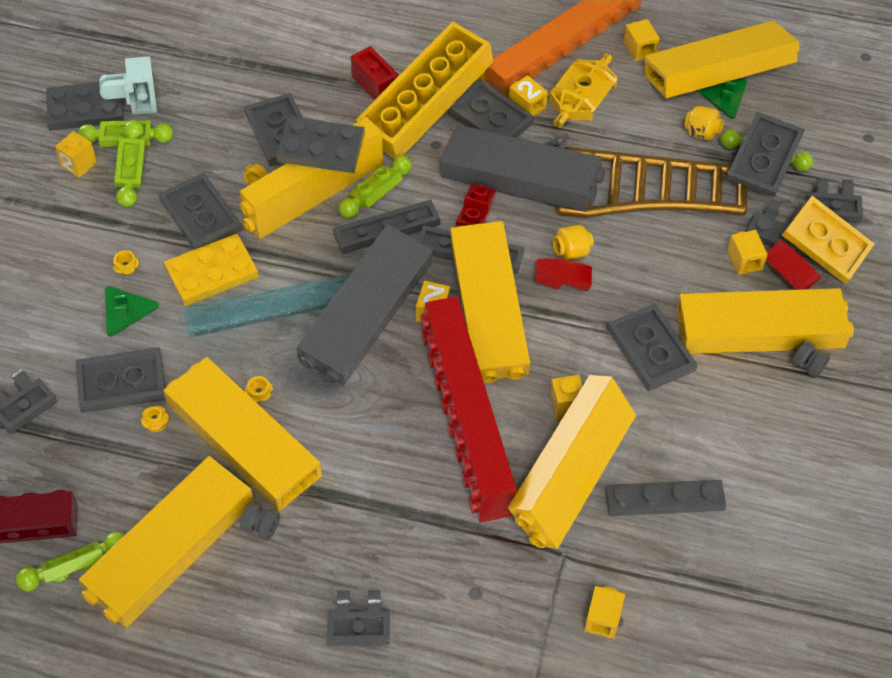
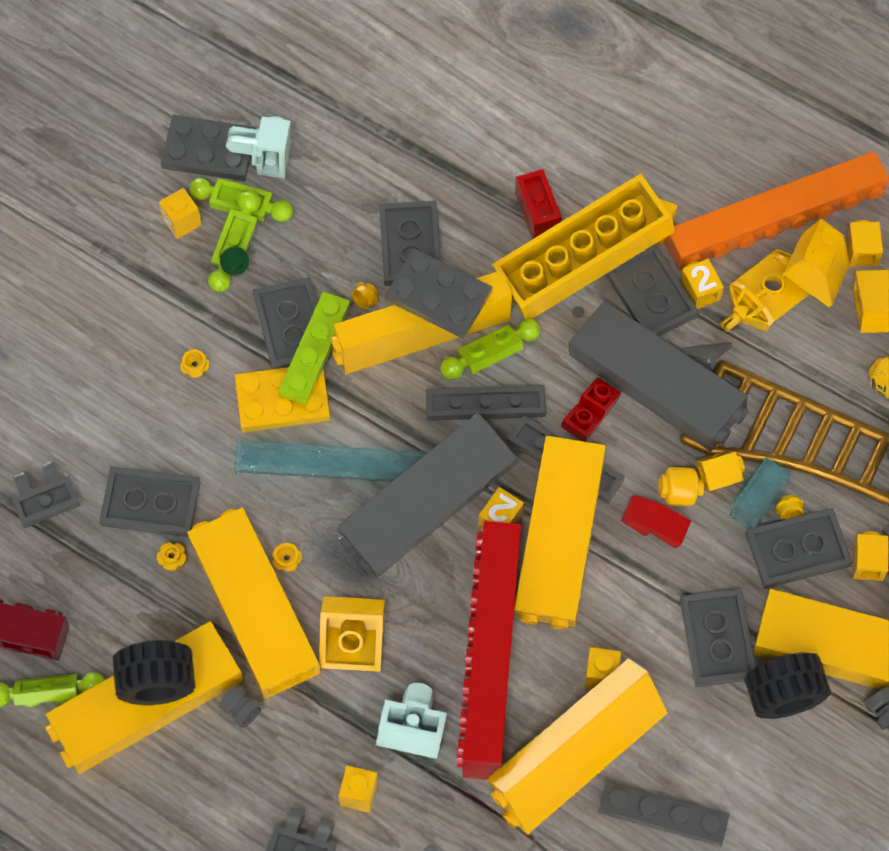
camera: 20 degrees right, 10 degrees up
(125, 309) = (179, 417): green piece -> none
(135, 175) = (234, 261): none -> dark green plate
(172, 505) = (153, 672): none -> black tyre
(226, 223) = (313, 349): none -> lime plate
(339, 432) = (351, 633): none -> yellow slope
(392, 557) = (358, 789): none -> yellow brick
(421, 488) = (412, 724): none -> light aqua brick
(601, 220) = (720, 469): none -> yellow brick
(614, 55) = (819, 262): none -> yellow slope
(639, 231) = (760, 494): none -> clear light blue brick
(667, 235) = (790, 507): none -> yellow plate
(686, 262) = (798, 548): none -> dark grey plate
(728, 360) = (787, 685): none -> black tyre

